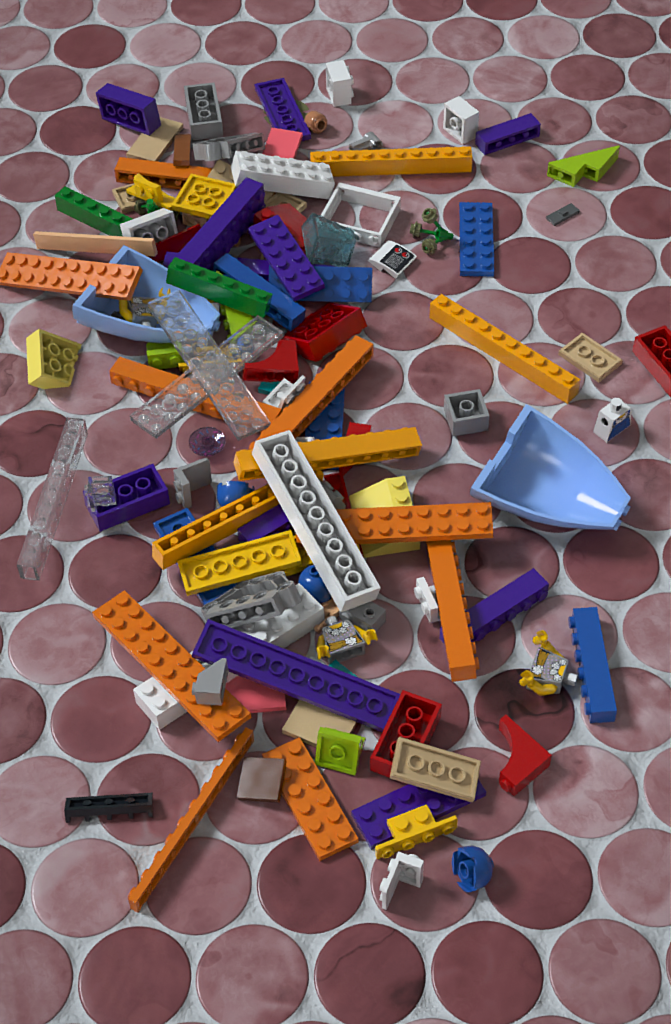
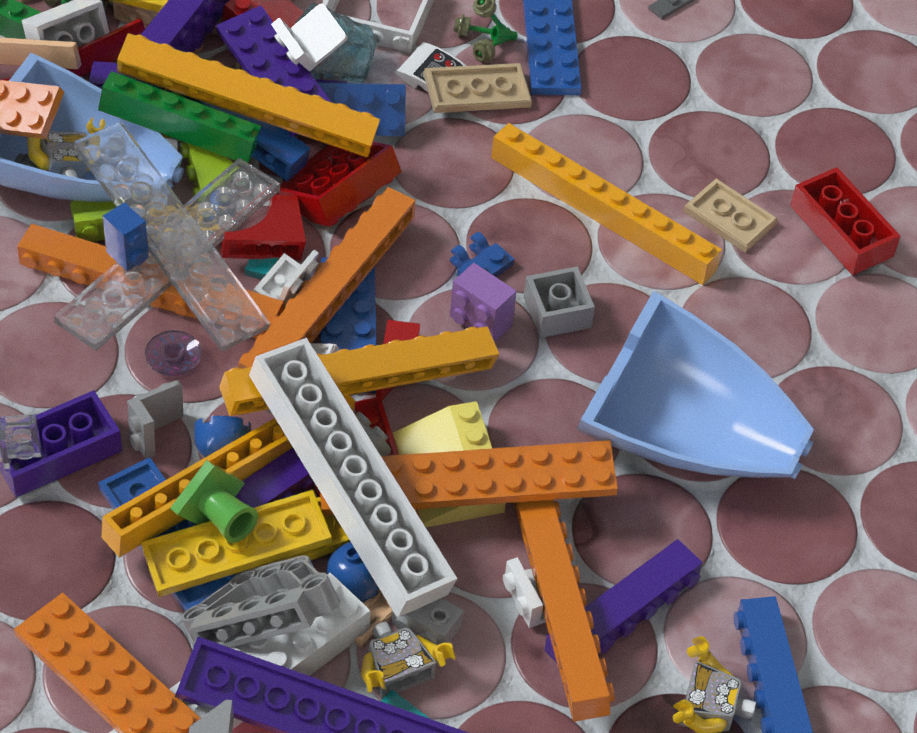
camera: 10 degrees left, 0 degrees up
(178, 364) = (125, 236): none -> blue brick
(225, 532) = (213, 499): none -> bright green plant
(264, 273) = (247, 94): none -> light orange brick
(309, 236) = (311, 37): none -> white bracket
(414, 410) = (482, 301): none -> medium lavender brick
(419, 388) = (490, 258): none -> blue plate
(423, 270) = (477, 88): none -> tan tile
(612, 419) = (777, 301): white torso -> none

